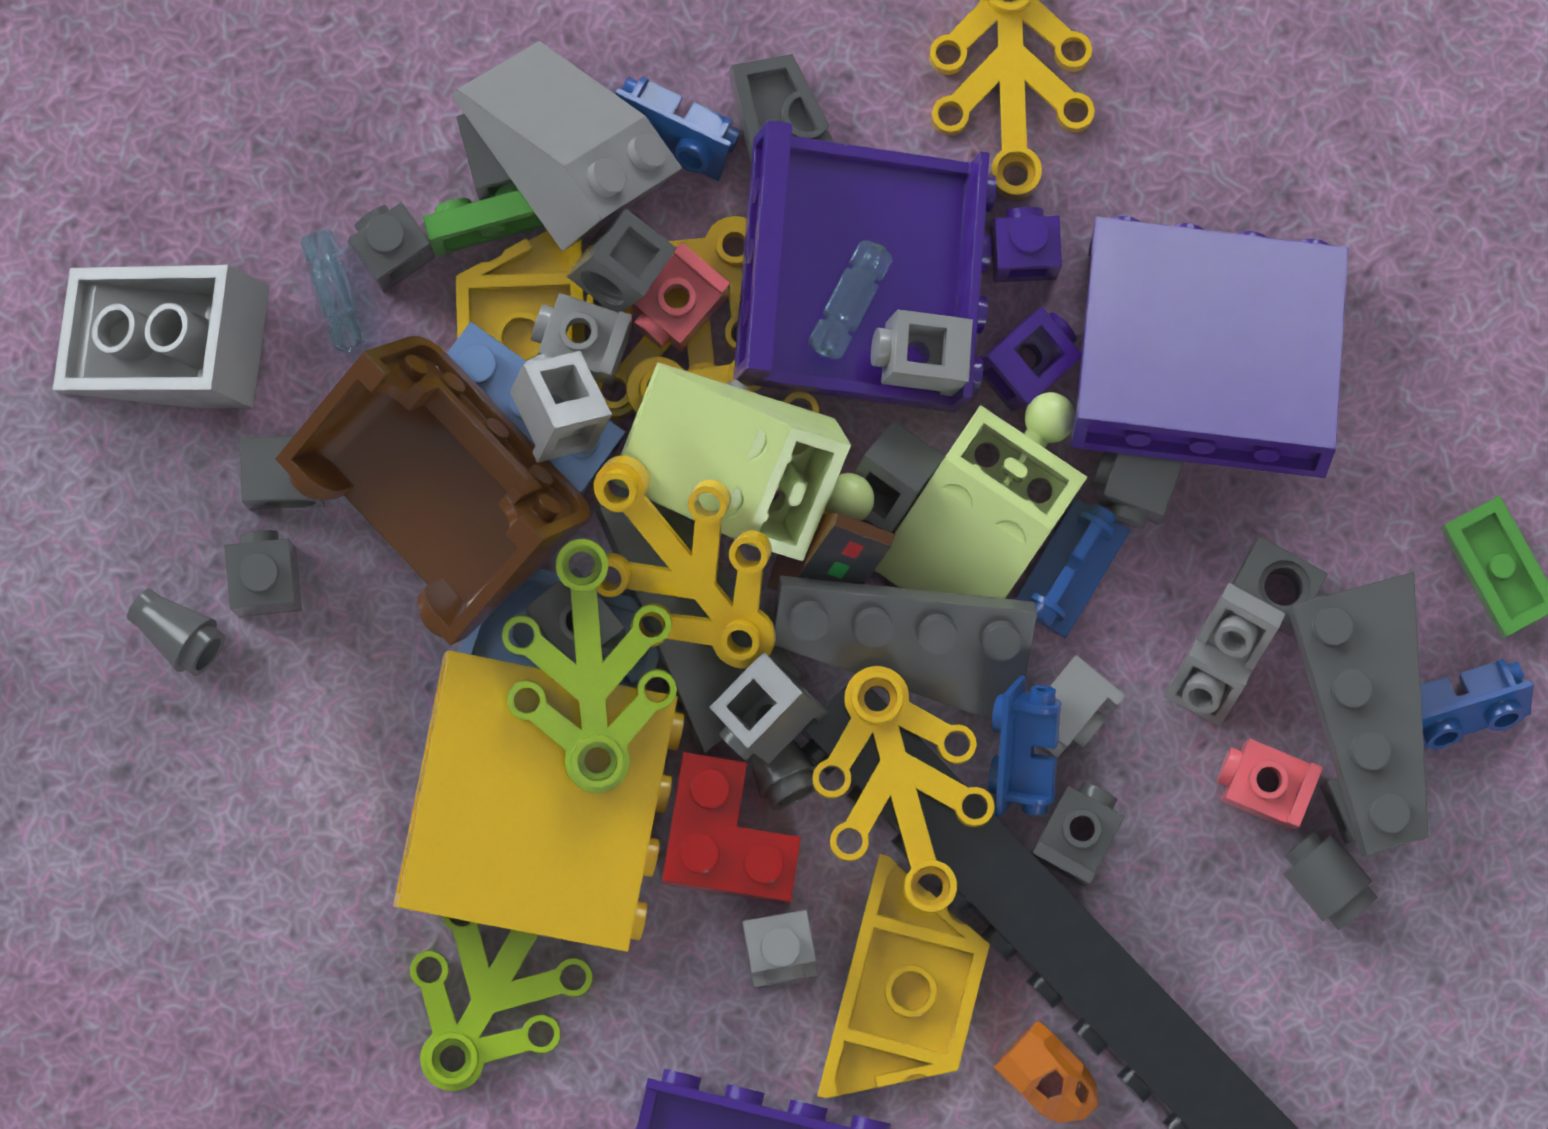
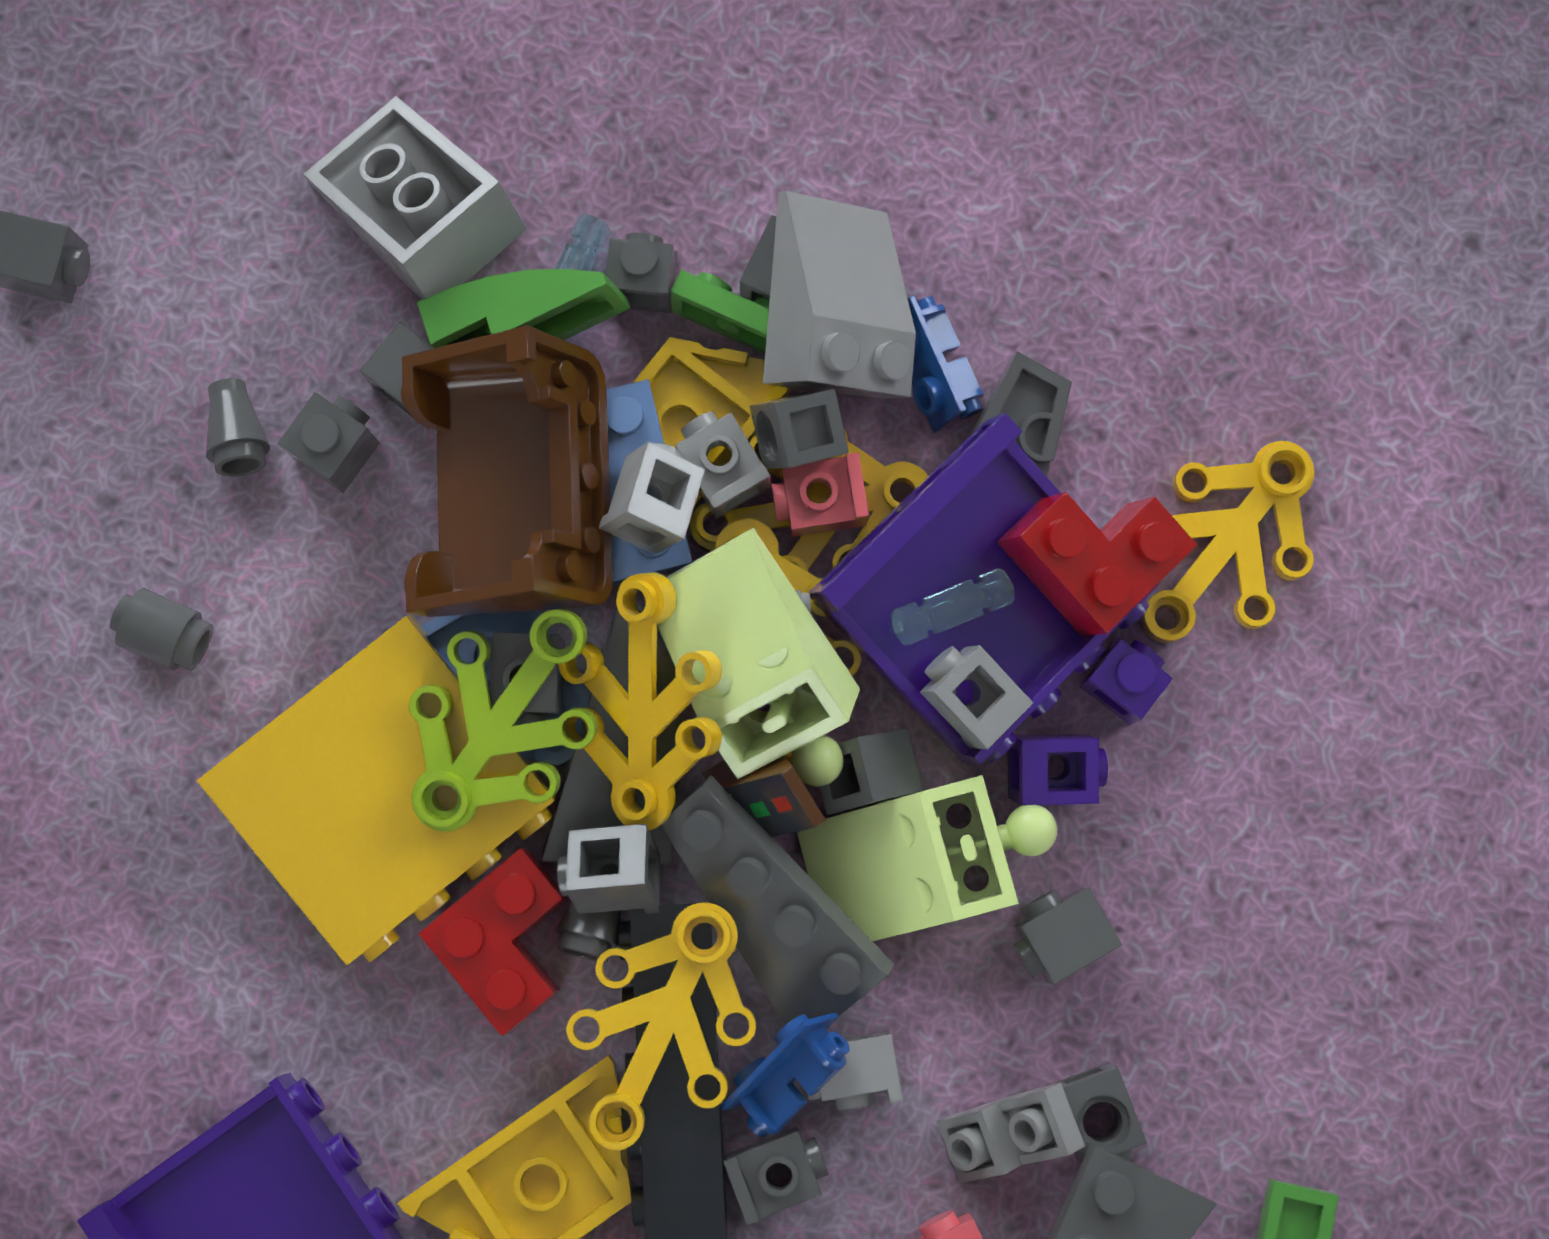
camera: 45 degrees right, 0 degrees up
(257, 830) = (161, 630): none -> dark grey brick
(323, 351) = (545, 299): none -> bright green slope
(490, 992) = (227, 903): lime plant -> none
(780, 948) = (468, 1061): light grey brick -> none
(935, 183) = (1093, 571): none -> red brick
(1073, 565) = (951, 959): blue hinge -> none
(1211, 347) = (1207, 885): panel -> none

